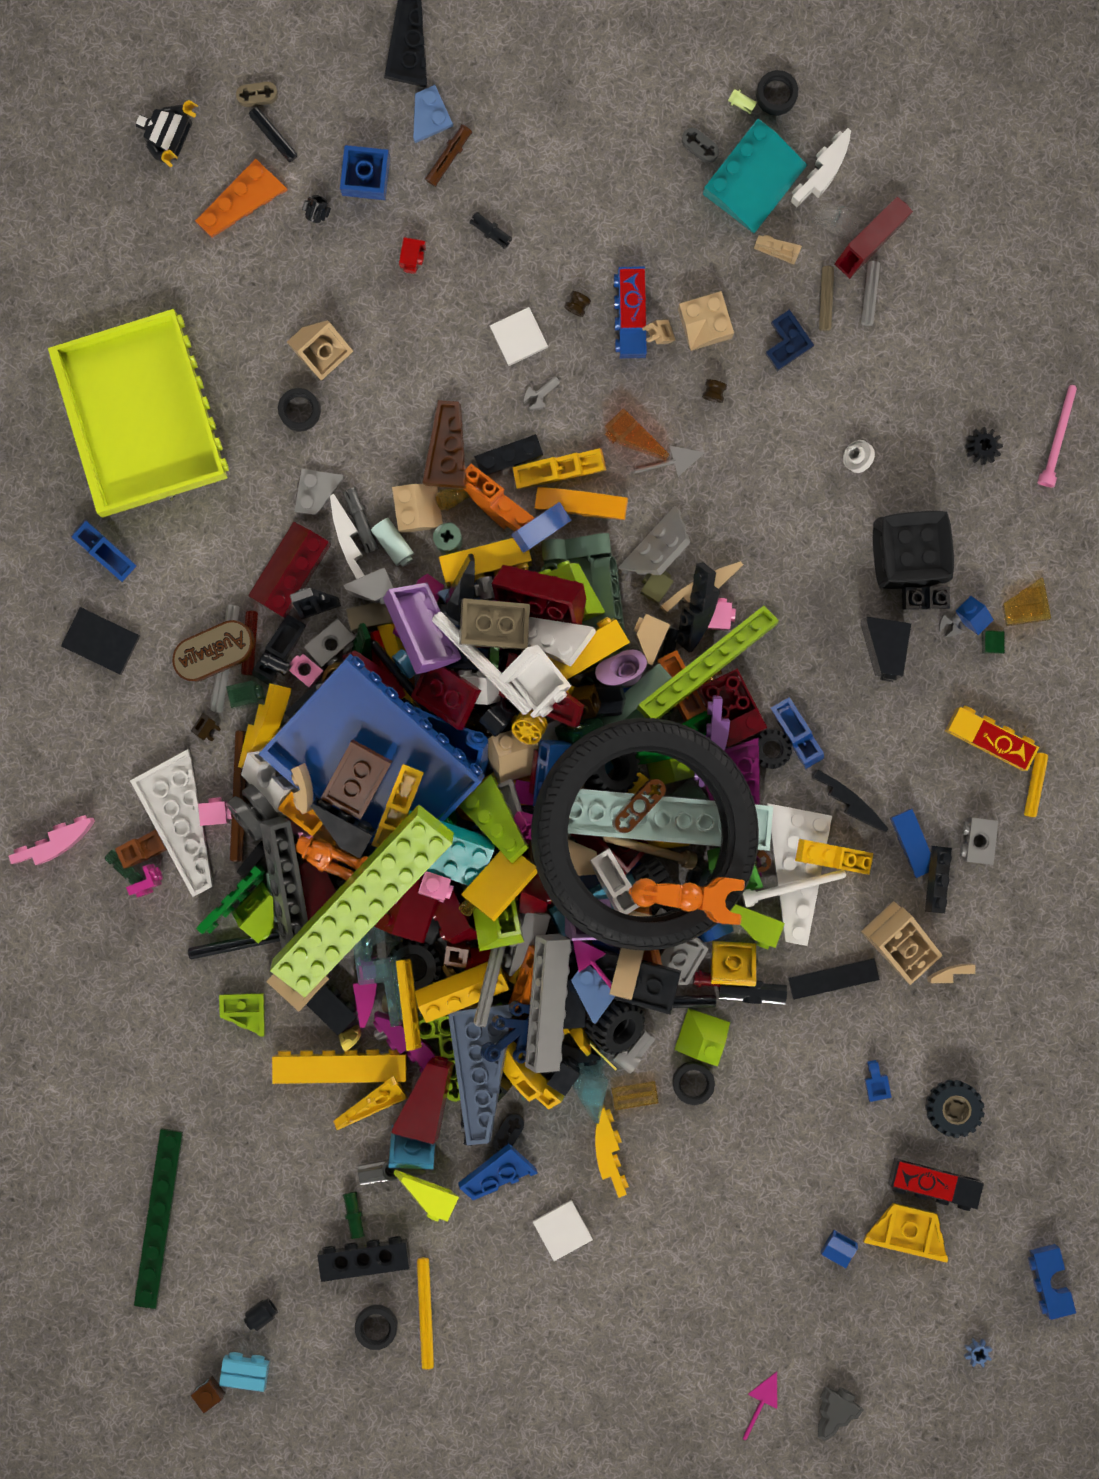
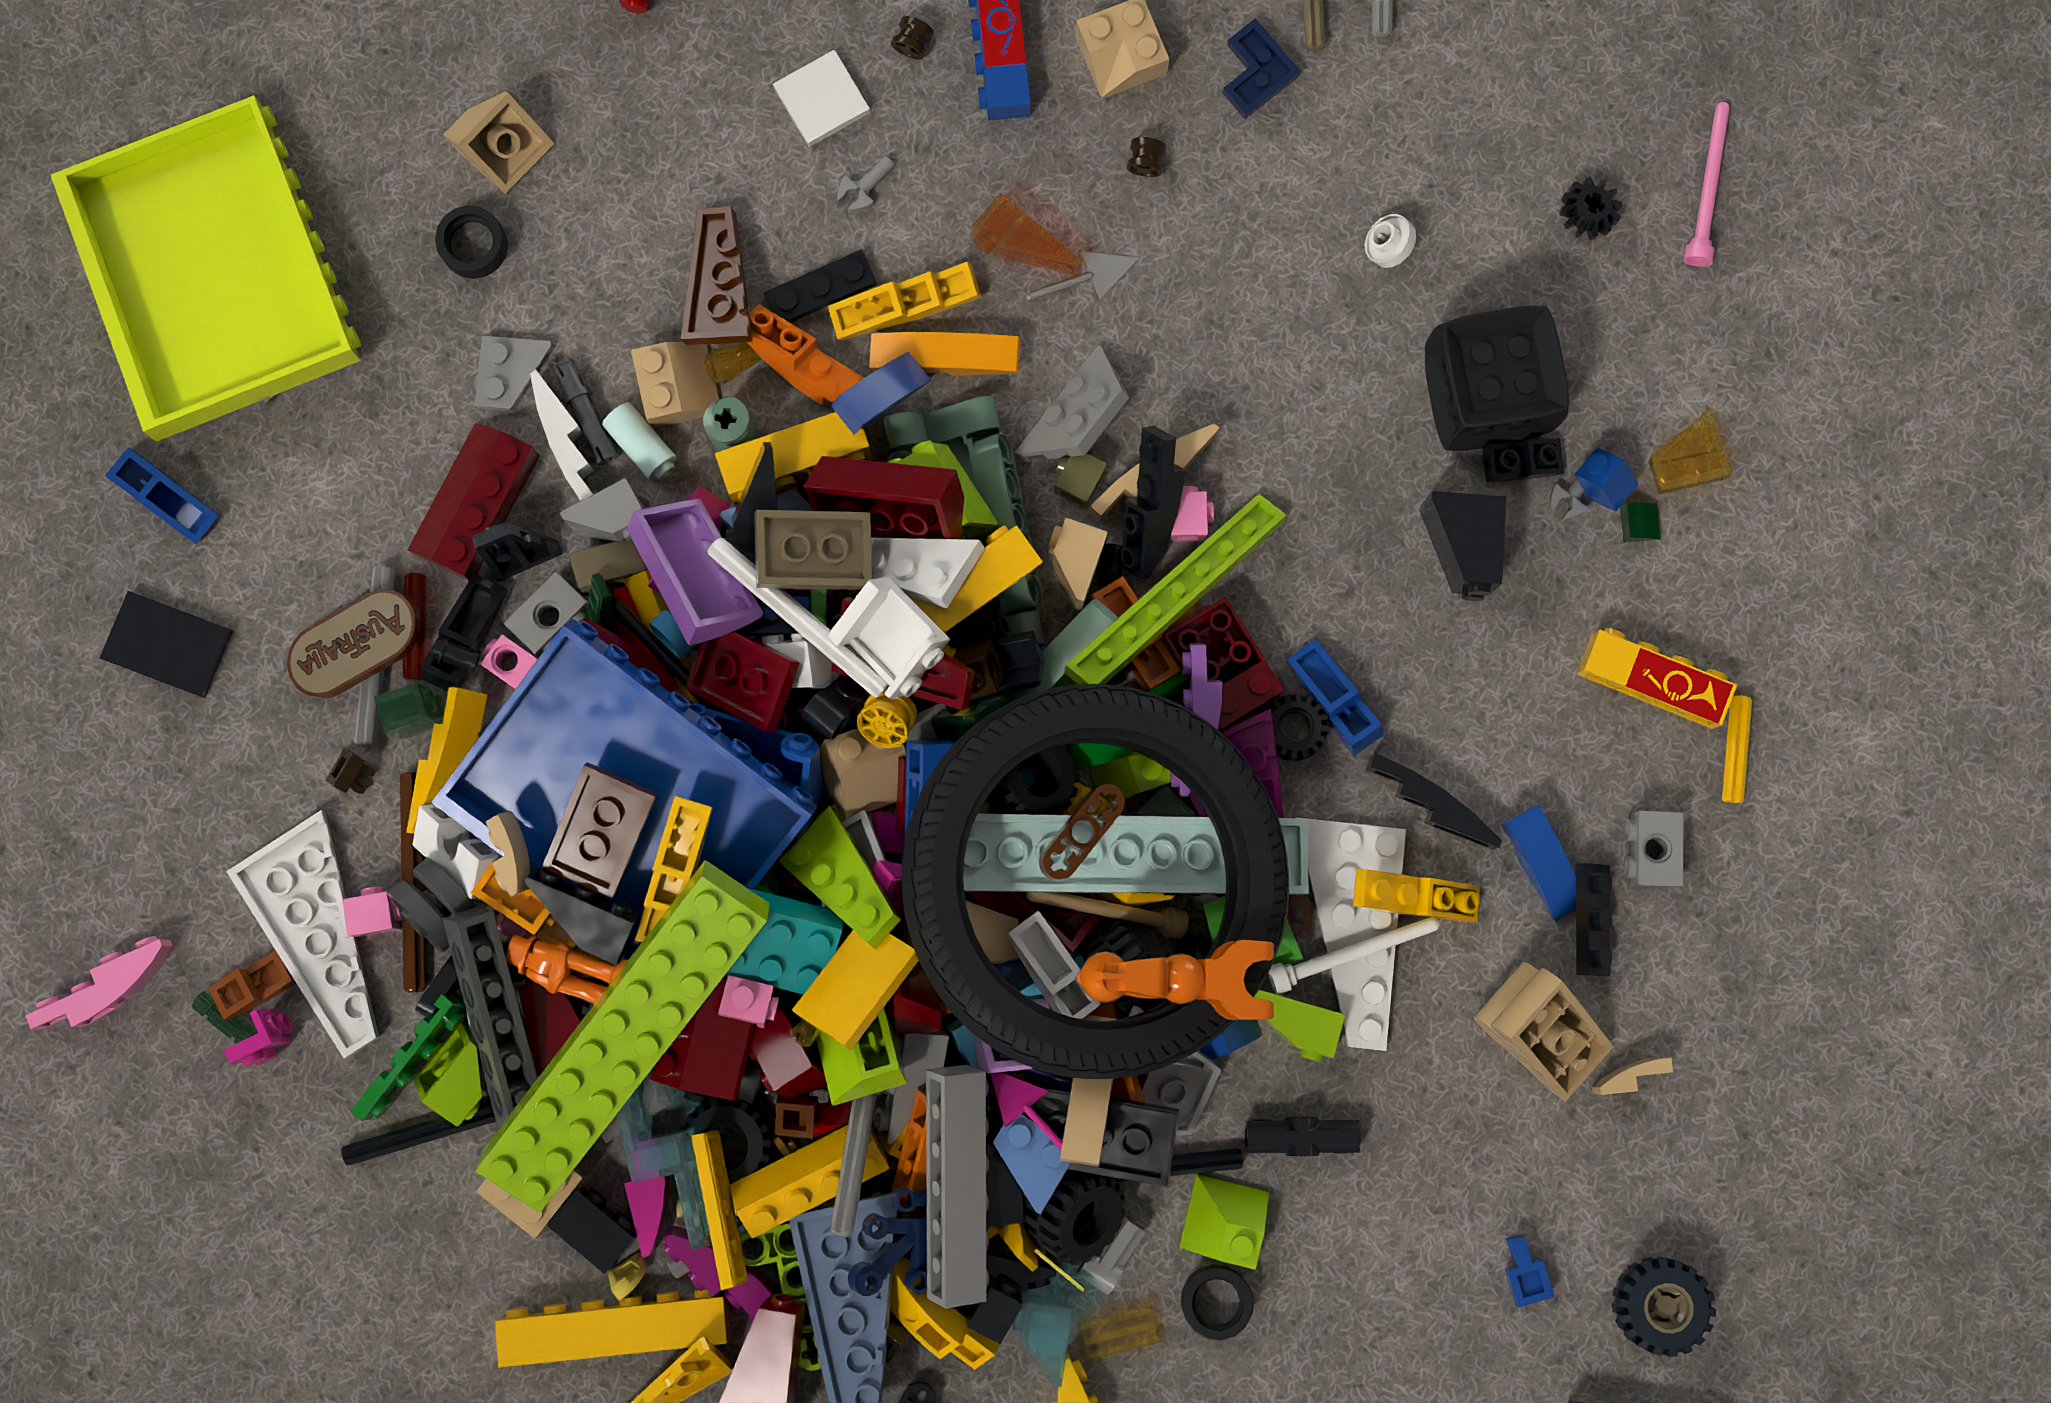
camera: 10 degrees left, 5 degrees down
(244, 1010) = (445, 1246): lime wing -> none
(484, 589) = (793, 496): light grey gear -> none
(622, 668) = (1034, 611): lavender piece -> none
(660, 332) = (1049, 70): tan plate -> none
(703, 978) = (1223, 1121): dark red pin -> none
(733, 963) = (1266, 1091): yellow plate -> none
(833, 978) = (1435, 1102): black tile -> none

